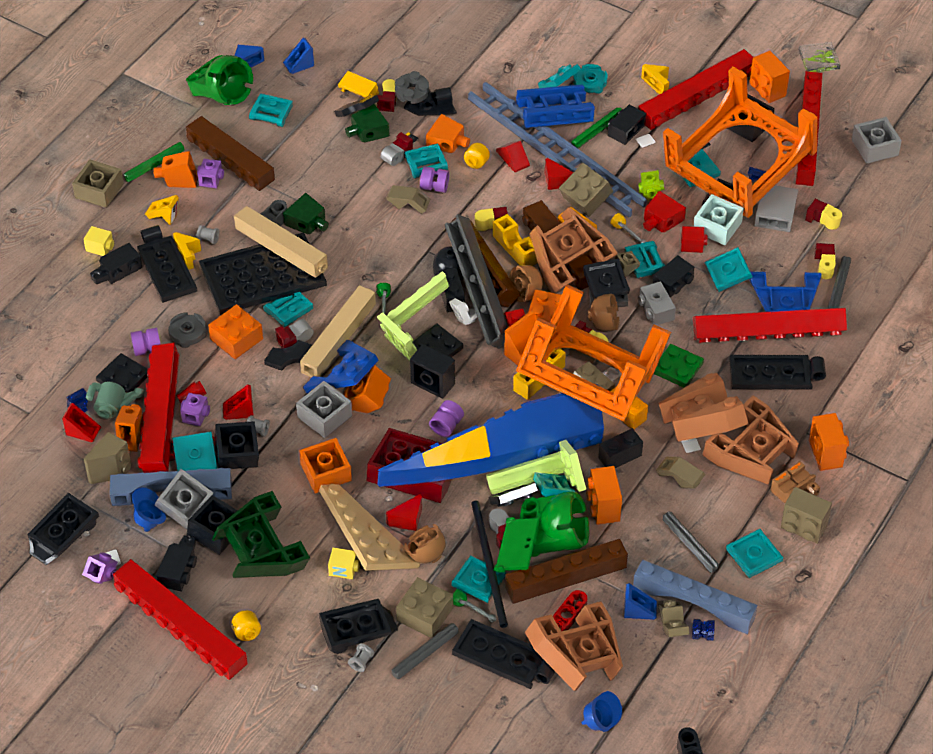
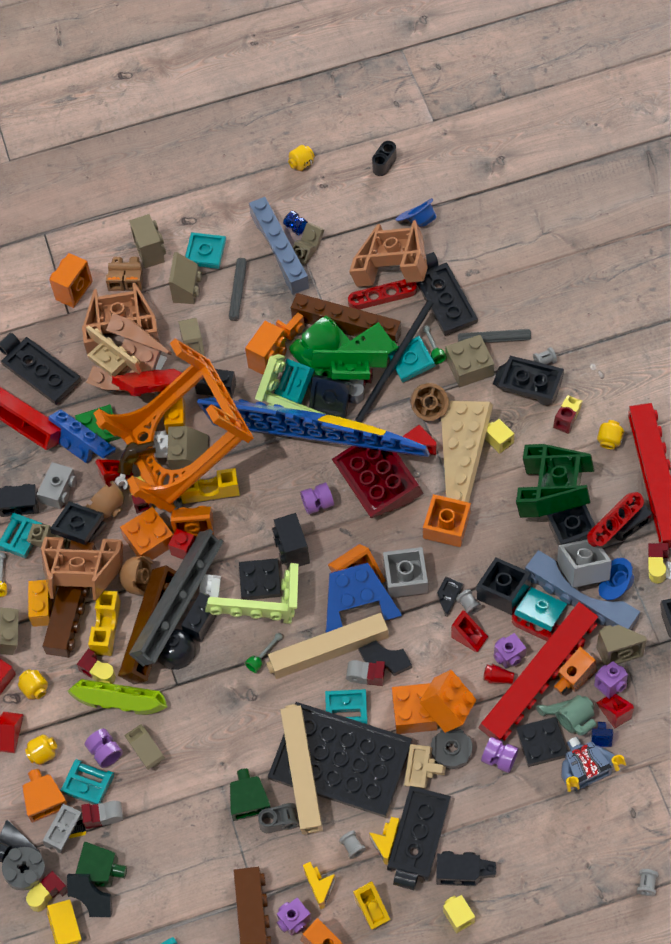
camera: 135 degrees left, 10 degrees up
(74, 373) = (587, 764): none -> torso
(95, 434) = (611, 679): none -> medium lavender brick
(126, 547) = (657, 568): none -> leg
(178, 560) = (616, 520): none -> red beam
(197, 300) = (421, 767): none -> tan hinge
(209, 337) = (448, 701): none -> orange brick
(212, 199) = (320, 888): none -> yellow slope
(280, 427) = (448, 593): none -> black tile
(299, 621) = (567, 414): none -> dark red leg
(413, 125) = (61, 828): none -> light grey hinge
(465, 207) = (118, 696): none -> lime brick
(511, 510) = (349, 363): none -> green bracket
(526, 185) = (32, 684): none -> yellow head
(609, 530) = (293, 327): none -> orange bracket
(615, 340) = (128, 458): none -> dark brown arm
(627, 334) = (108, 470): none -> red slope
(638, 604) = (321, 268): blue slope -> none
(659, 395) = (146, 381): none -> red piece
(686, 340) = (80, 439): none -> blue bracket
(715, 389) = (109, 356): none -> tan bracket
(738, 507) = (184, 279): none -> dark tan slope
(767, 697) = (301, 157): none -> yellow head

